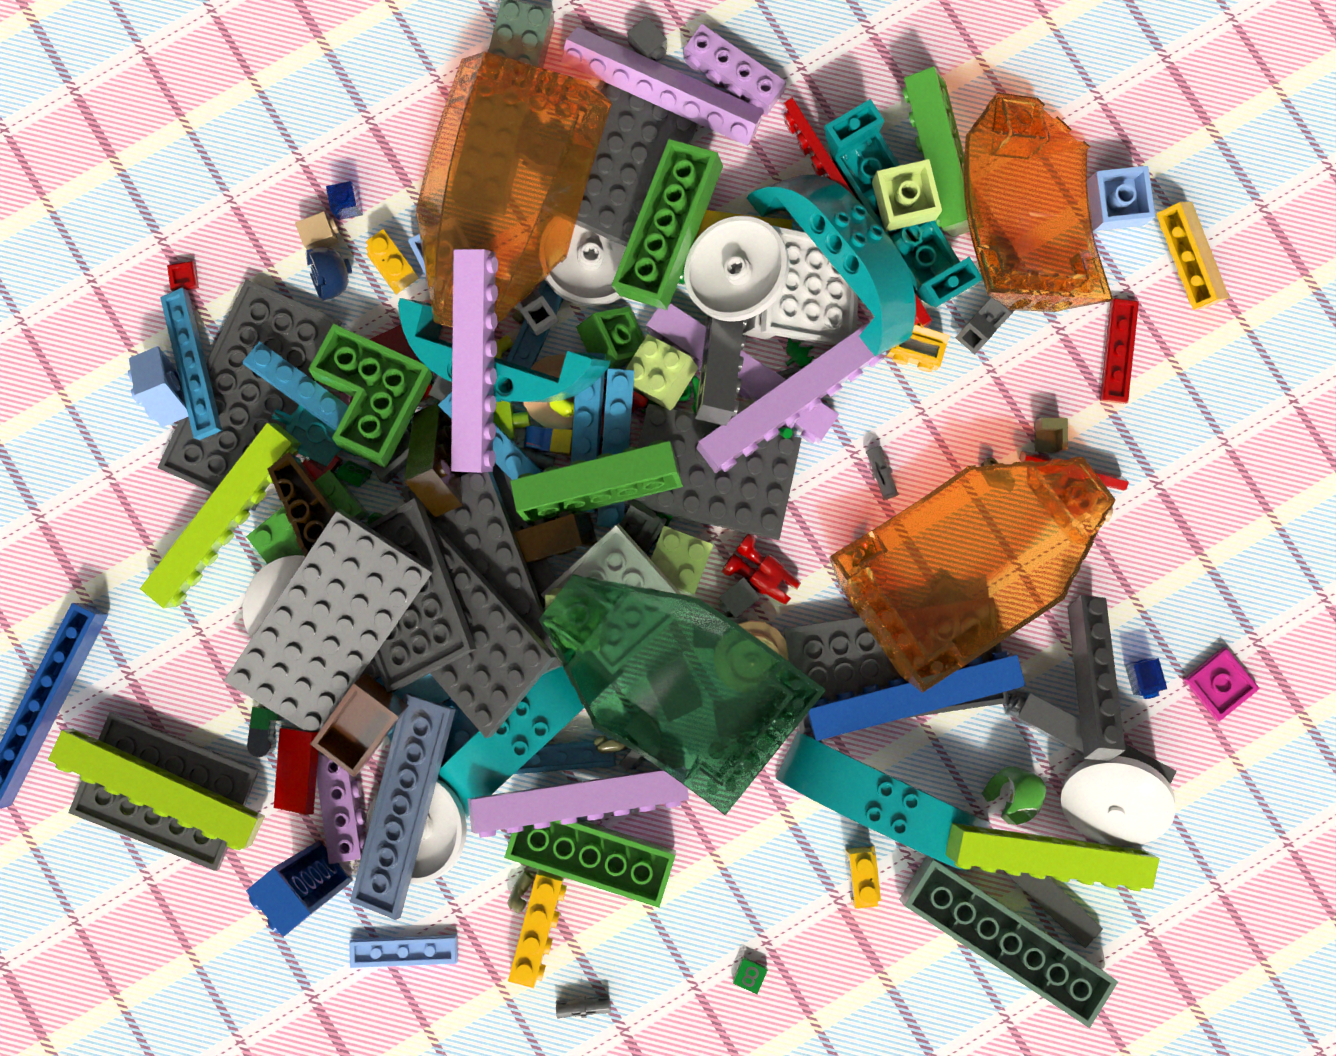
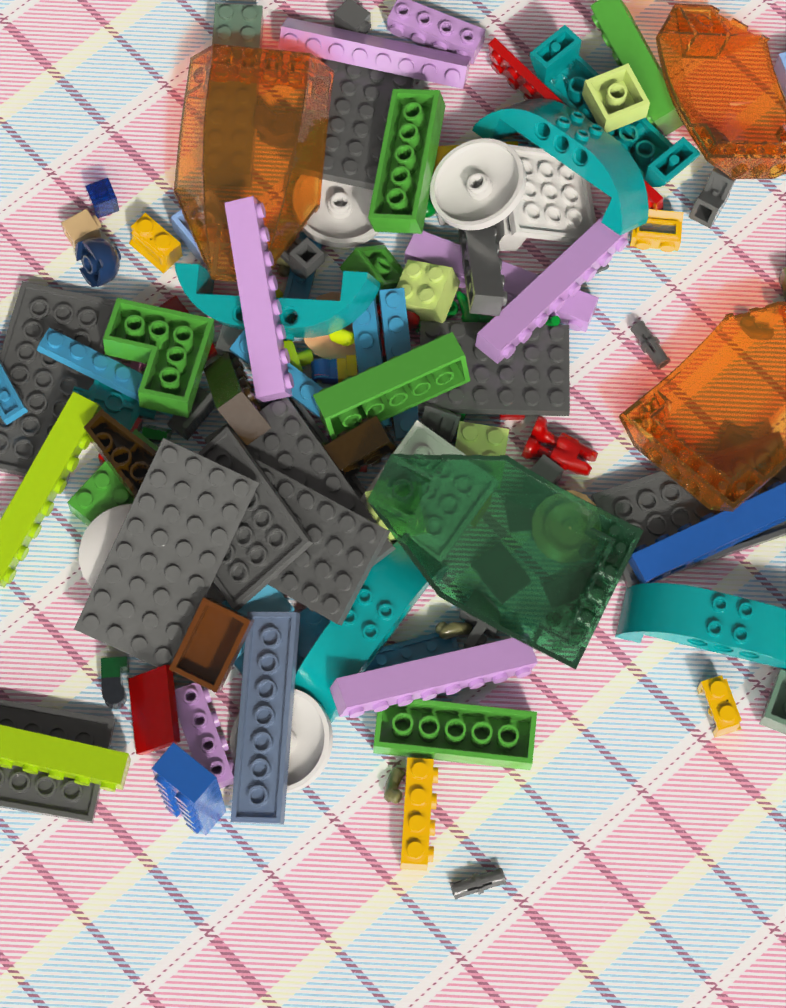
camera: 15 degrees left, 15 degrees down
(403, 951) = (290, 866): light blue tile -> none
(750, 975) = (633, 822): green tile -> none
(798, 354) = (545, 256): green piece -> none

